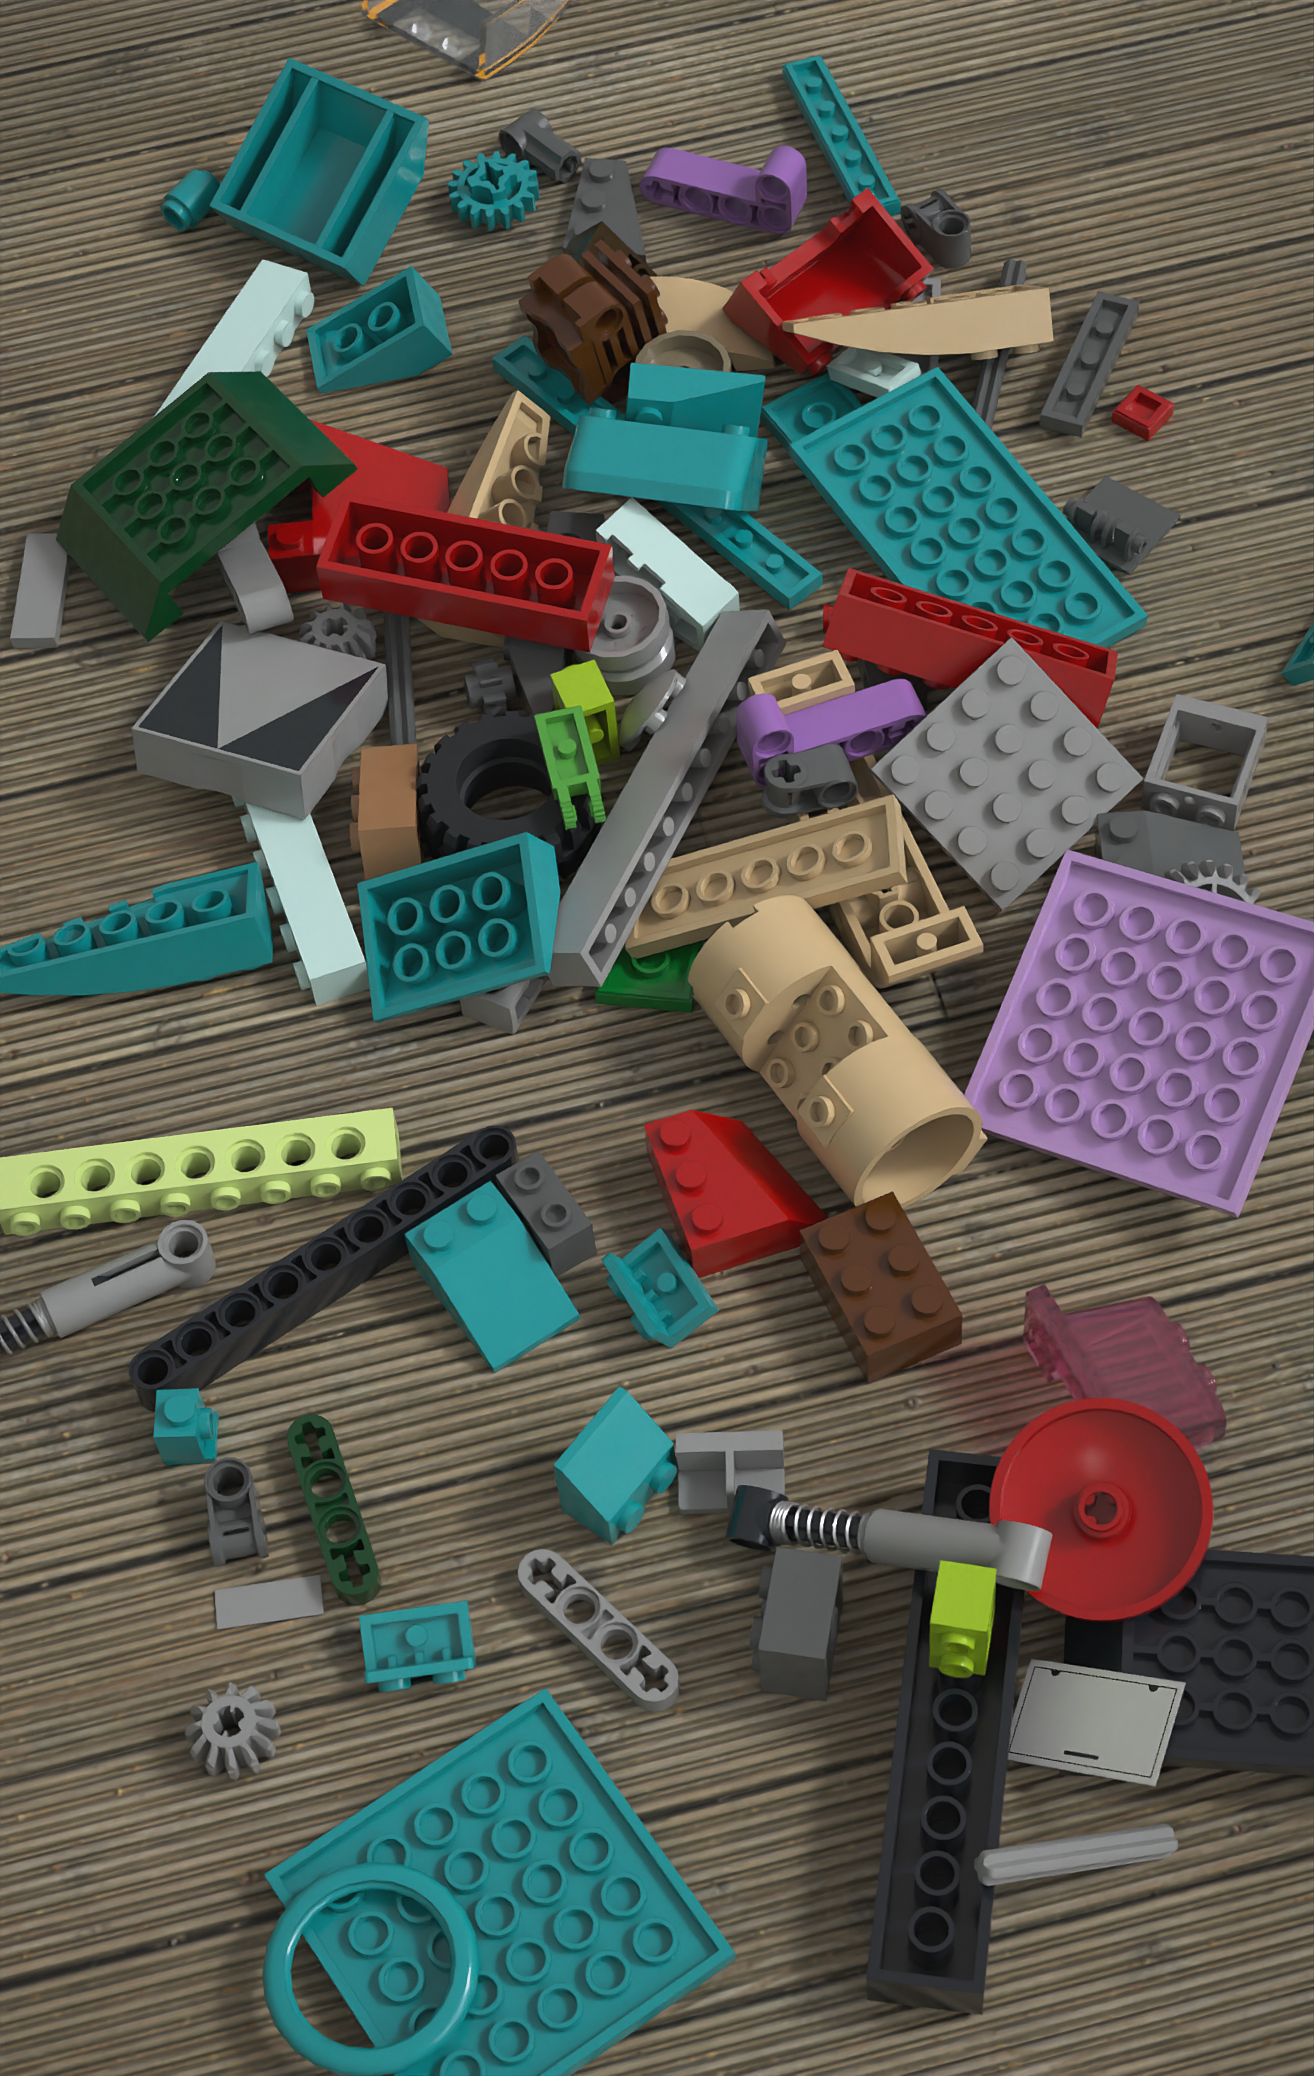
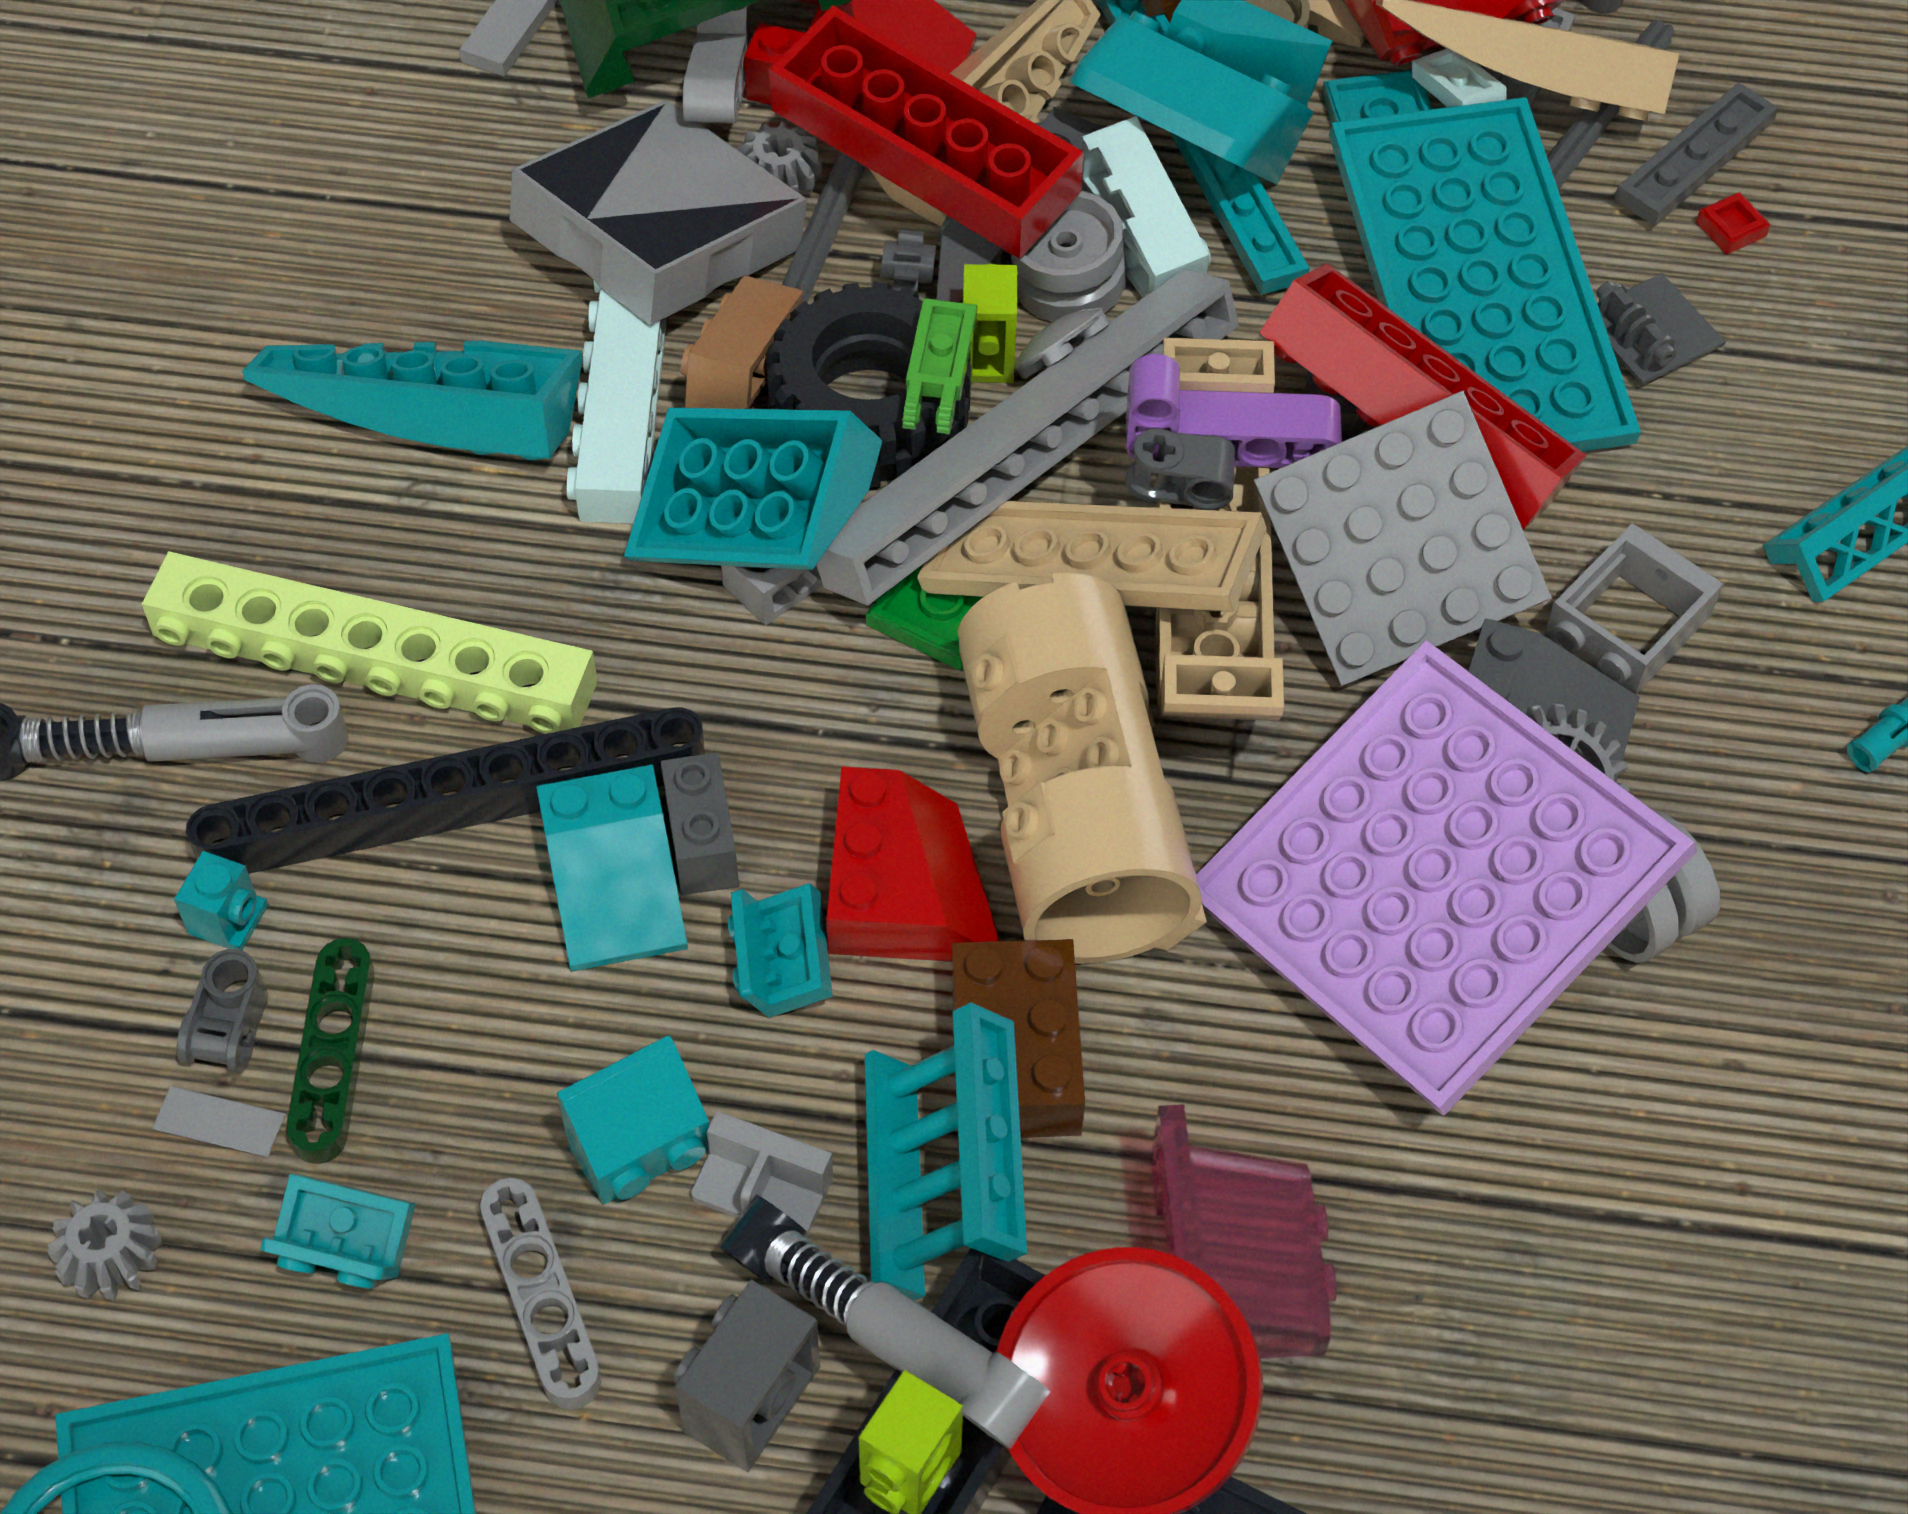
camera: 15 degrees right, 0 degrees up
(912, 1383) = (988, 1152): none -> teal fence

